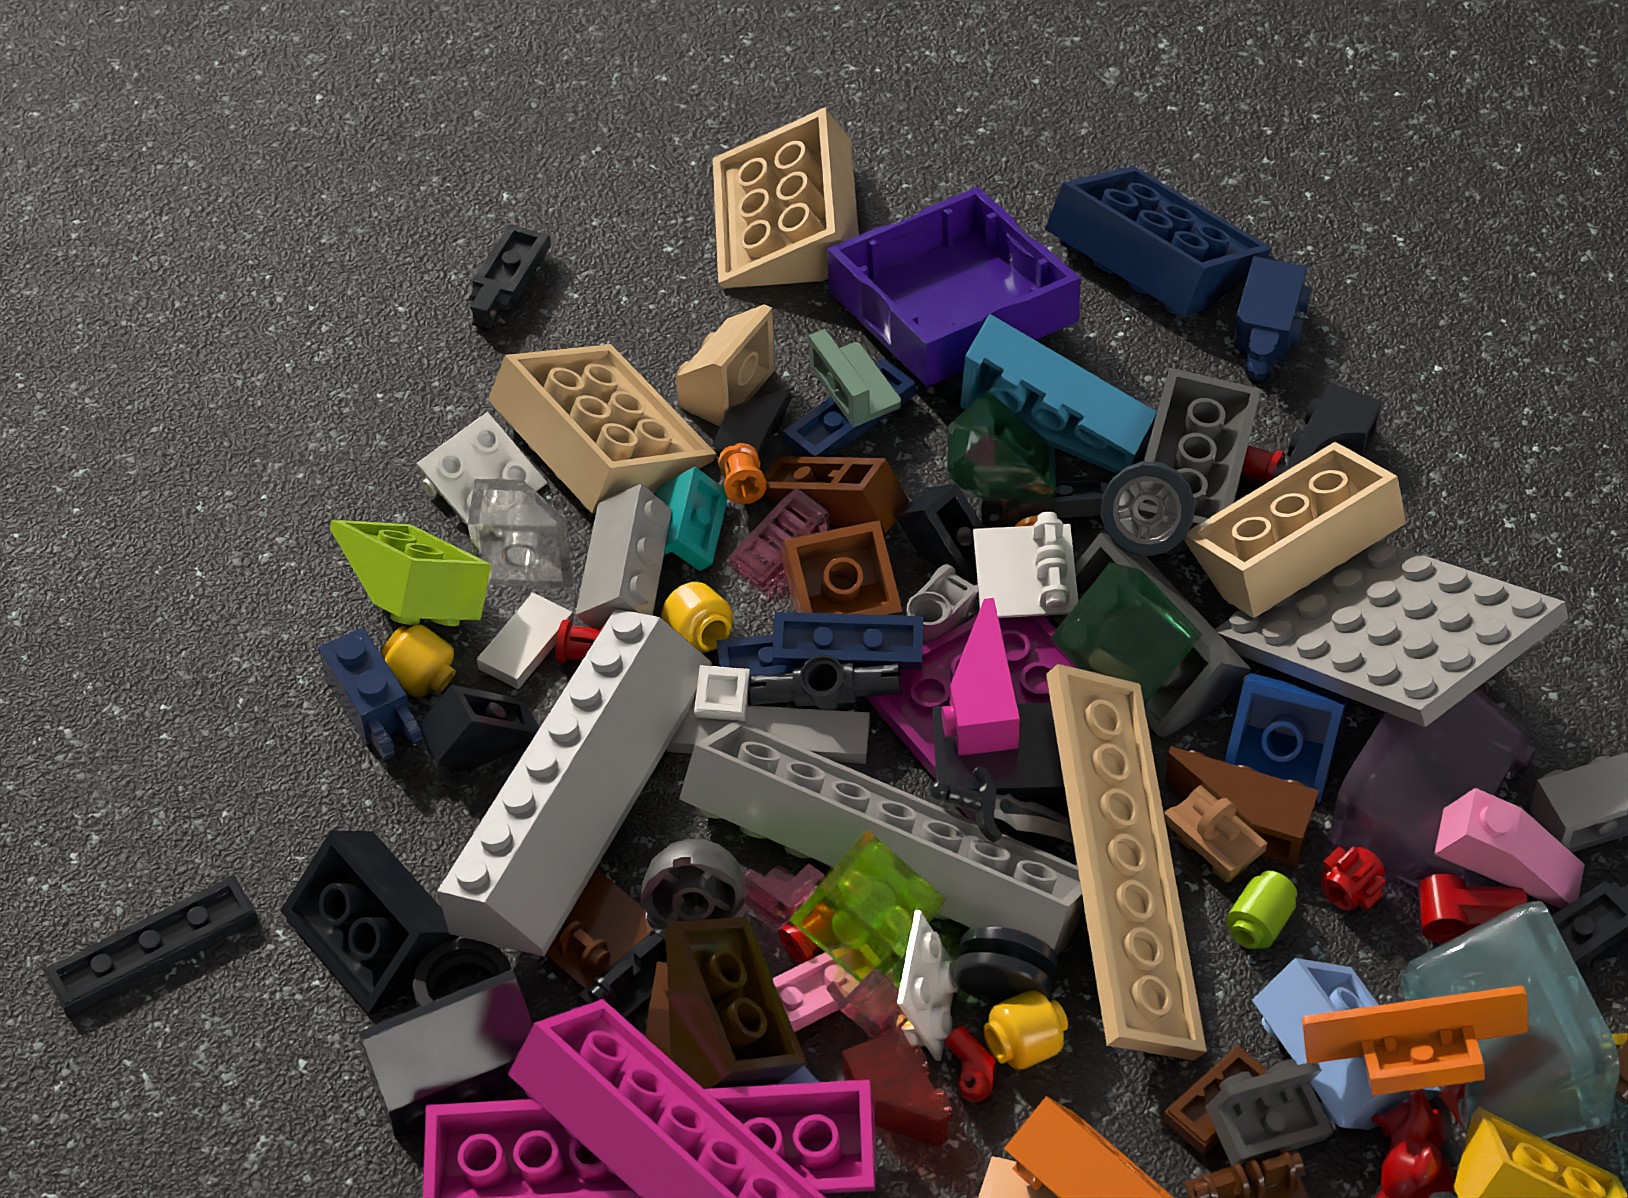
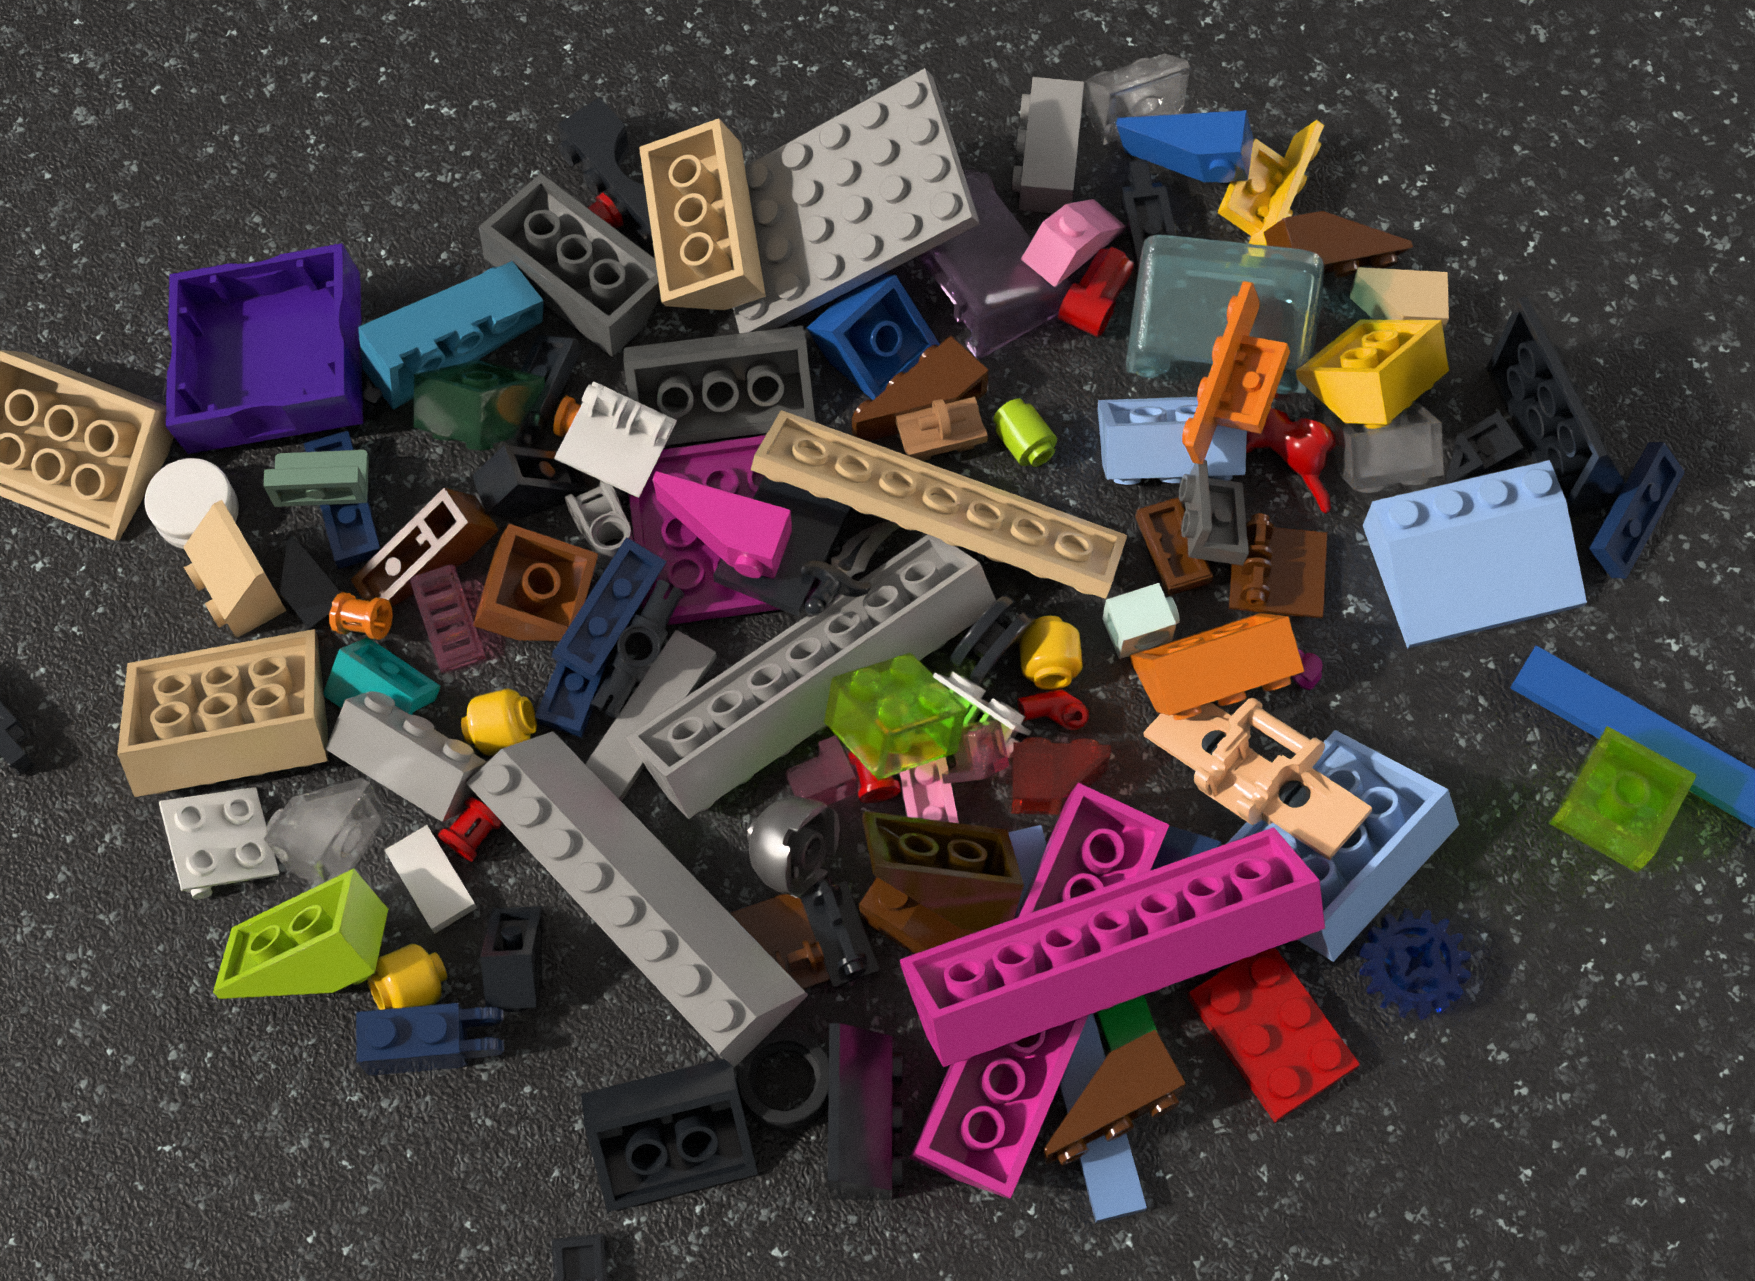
camera: 65 degrees left, 15 degrees up
(722, 693) = (596, 736): white tile -> none
(794, 306) = (183, 495): none -> white head
(1113, 1098) = (1140, 620): none -> light aqua brick
(1127, 630) = (732, 393): clear green slope -> none
(1139, 532) = (647, 308): wheel -> none
(1153, 238) = (305, 173): dark blue slope -> none
(1269, 314) = (445, 131): dark blue hinge -> none
(1353, 878) = (1031, 355): red gear -> none

